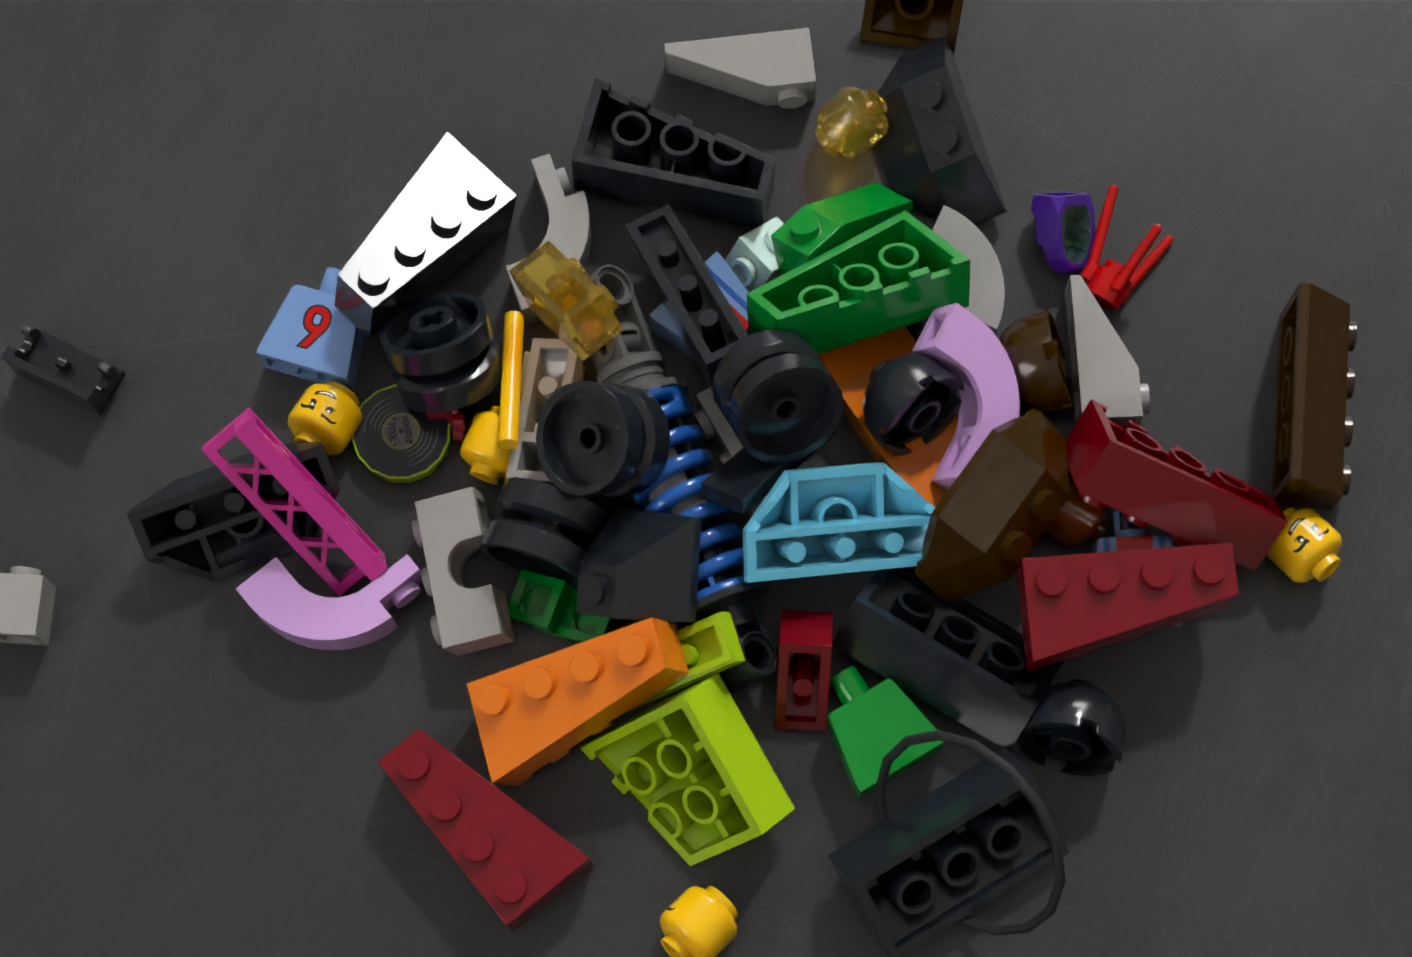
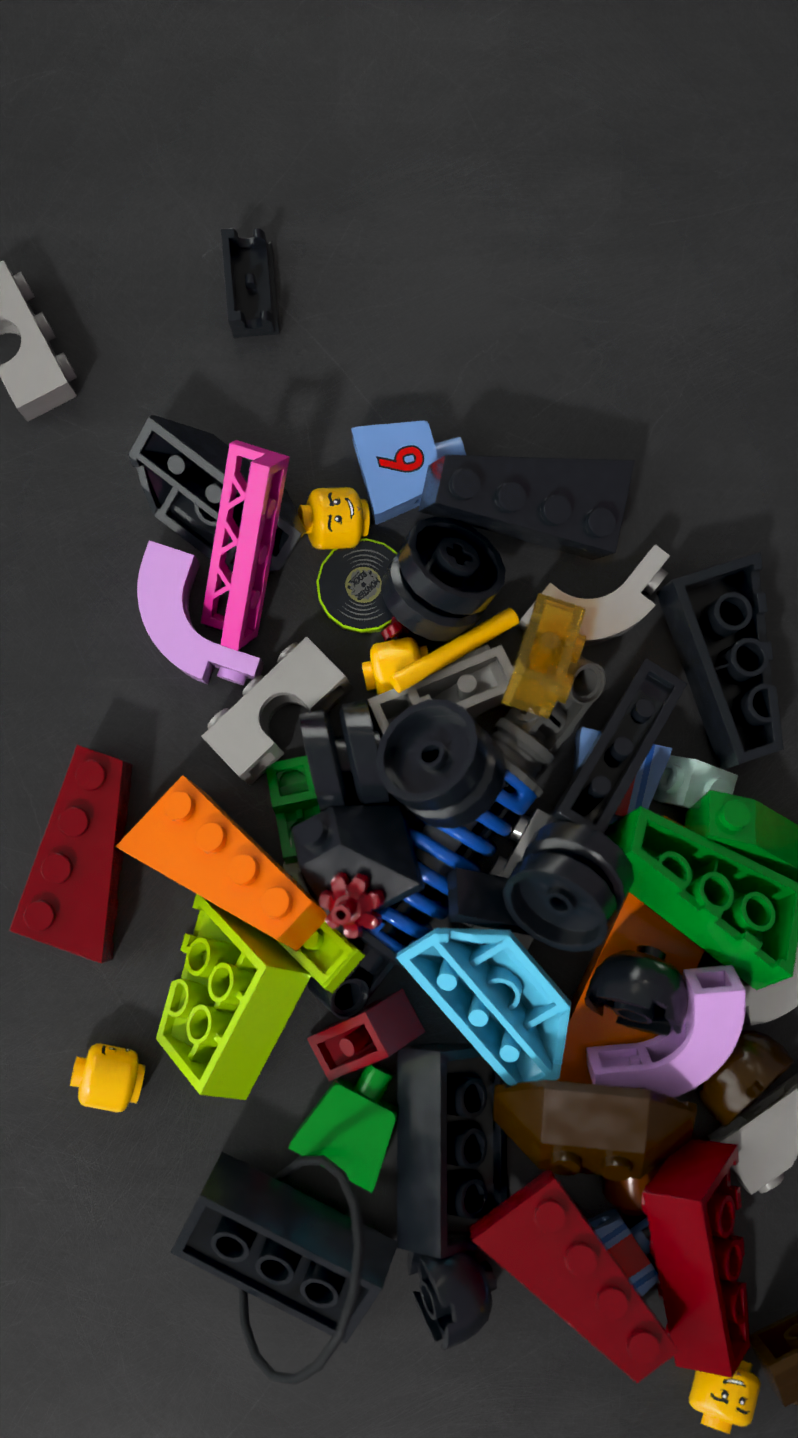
camera: 55 degrees right, 10 degrees up
(672, 580) = (352, 904): none -> dark red plant

